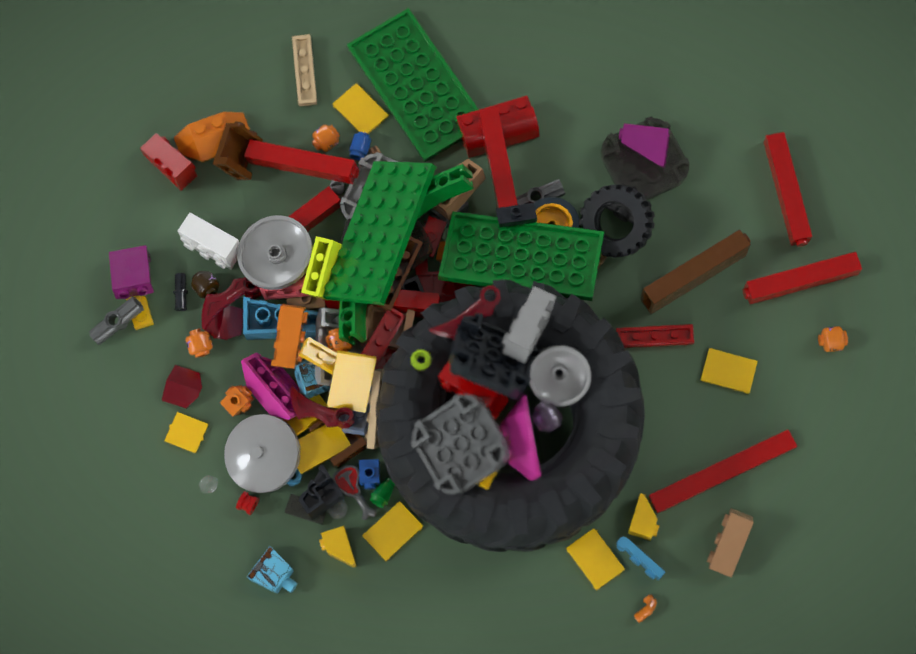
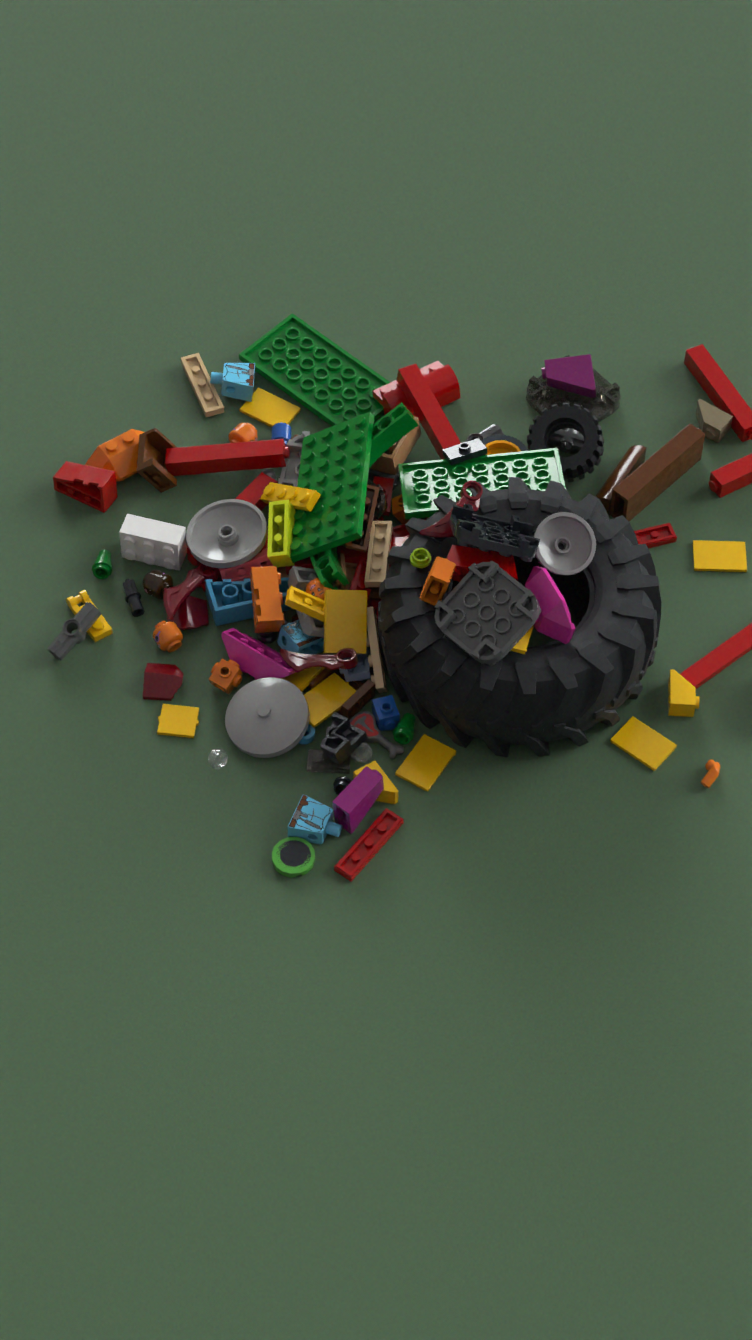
camera: 20 degrees left, 20 degrees down
(130, 272) = (77, 585): magenta panel -> none
(162, 251) = (102, 565): none -> green cone
(247, 503) = (265, 766): red wheel -> none
(247, 602) = (293, 857): none -> tile
(310, 541) = (340, 784): none -> black plate
(315, 565) = (357, 799): none -> magenta slope
(317, 605) = (368, 844): none -> red tile
(335, 74) = (236, 380): none -> medium azure torso
(341, 229) = (299, 497): none -> yellow plate
(404, 309) = (378, 552): none -> tan plate
(426, 395) = (437, 580): none -> orange brick
(529, 325) = (521, 498): light grey wedge -> none
(546, 417) = (565, 581): clear purple head -> none
(640, 558) = (689, 729): dark azure plate -> none
(659, 264) = (629, 463): none -> reddish brown brick
(768, 220) = (713, 421): none -> dark tan slope

